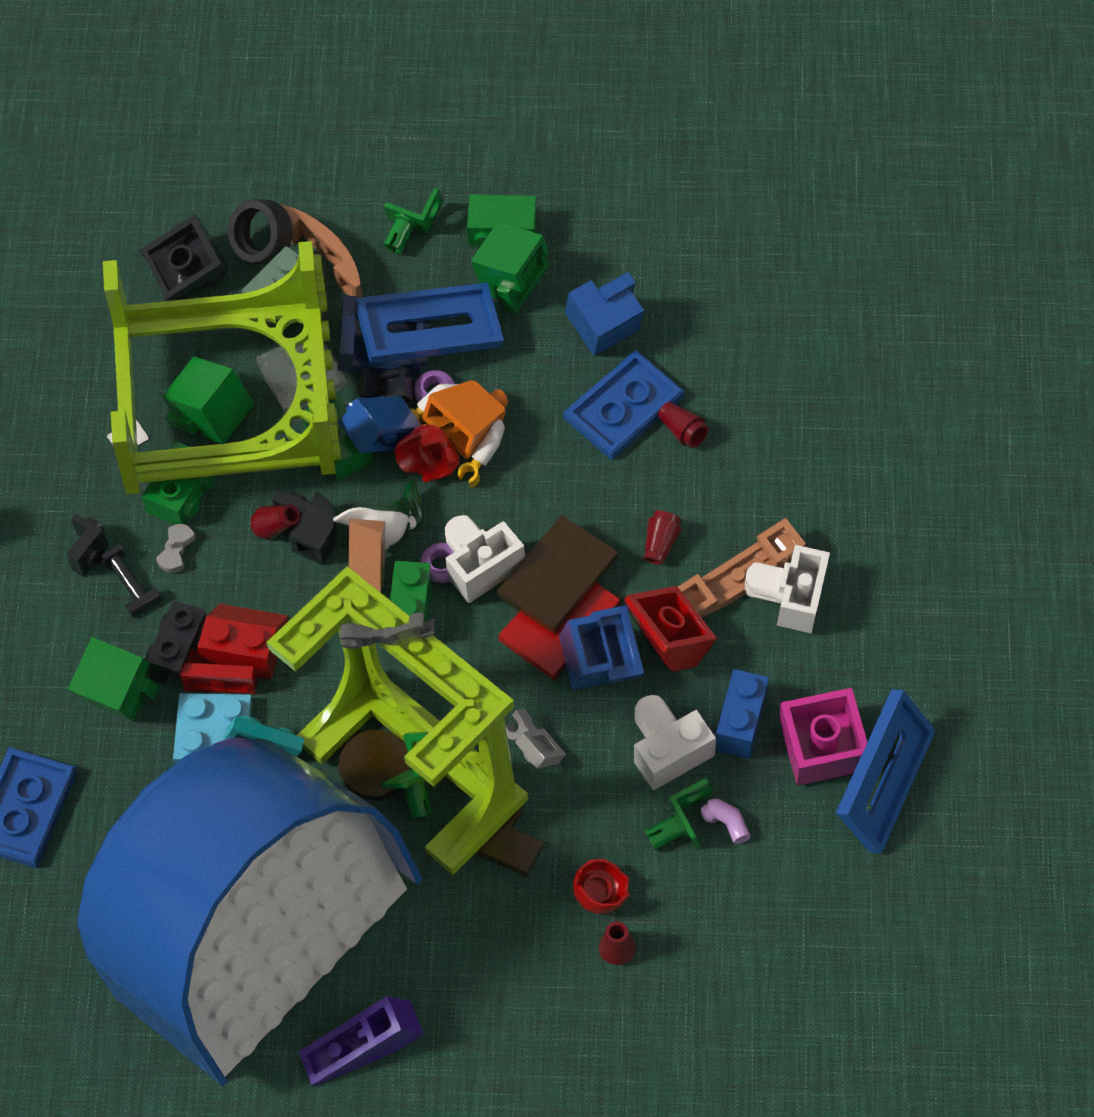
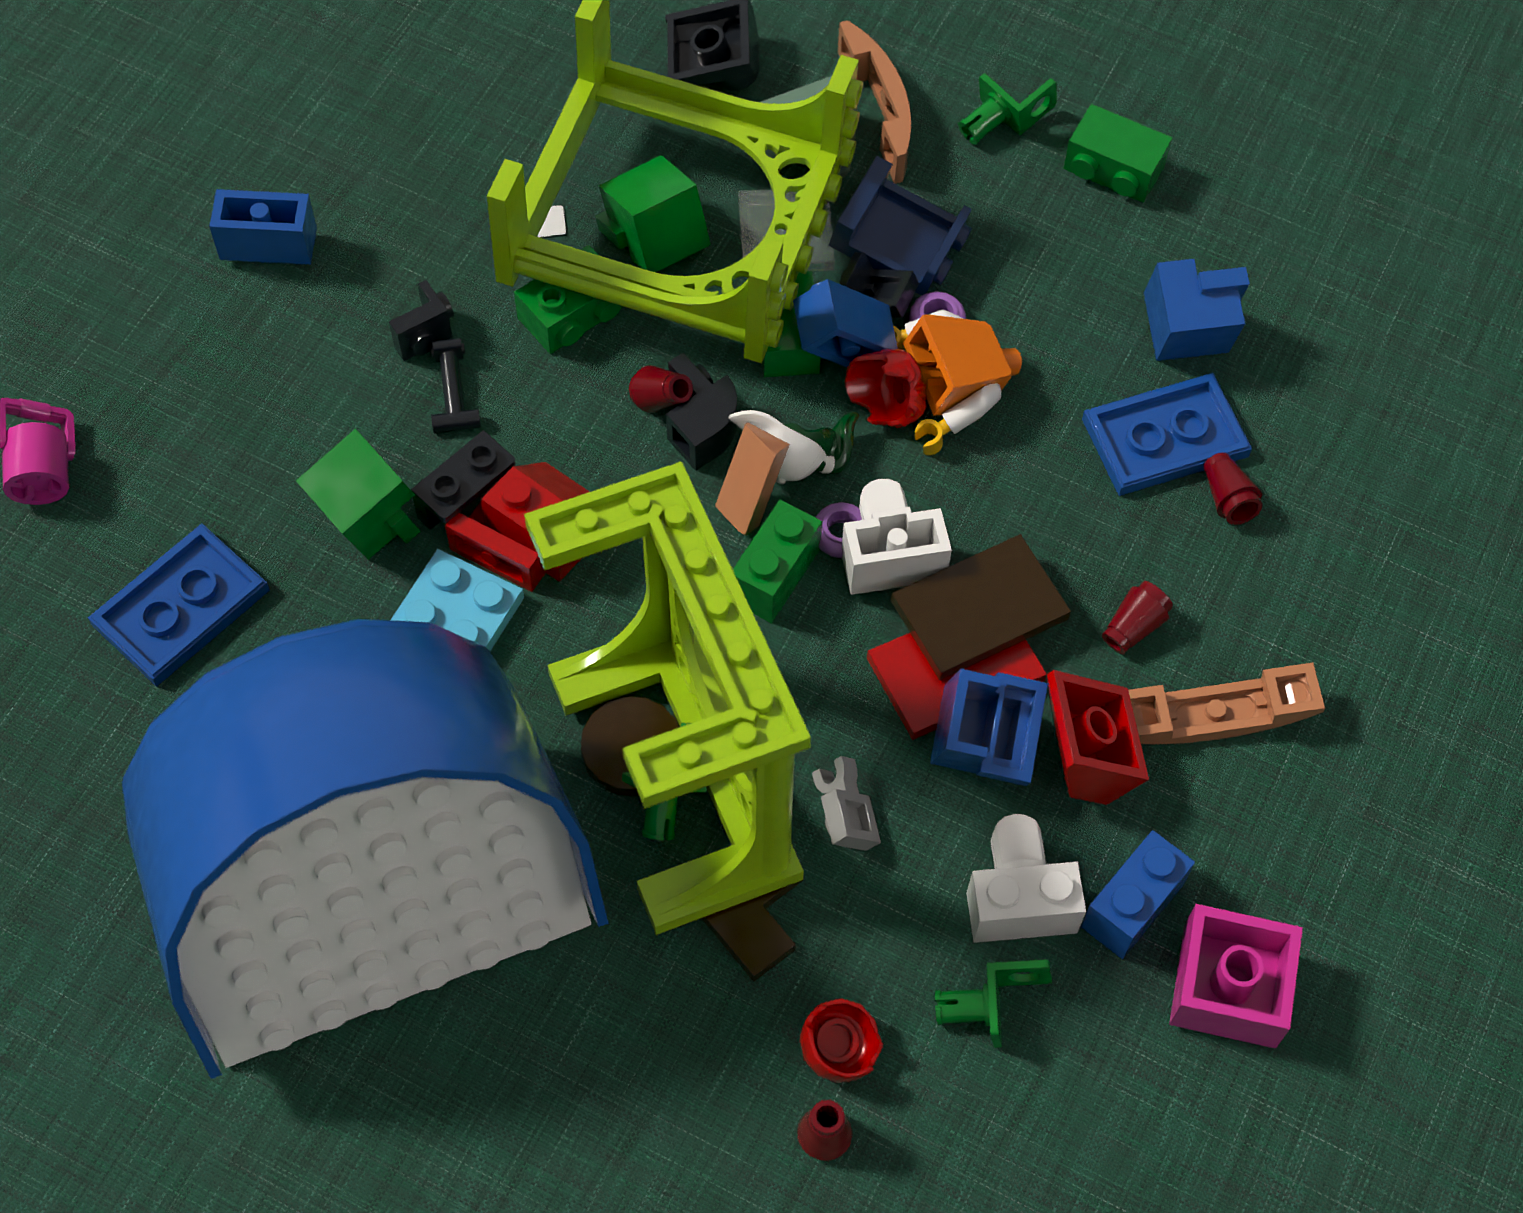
camera: 20 degrees right, 0 degrees up
(178, 538) = (516, 383): light grey piece -> none
(240, 225) = (797, 33): black tyre -> none
(251, 728) = (519, 661): teal plate -> none
(358, 636) = (647, 559): dark grey piece -> none
(362, 1040) = (429, 1100): dark purple slope -> none
(384, 310) = (1032, 228): blue piece -> none
(511, 264) = (1102, 205): green plate -> none
(728, 814) = (1058, 1022): lavender arm -> none
(794, 586) = (1284, 757): white brick -> none
(916, 733) = (1364, 1029): blue piece -> none

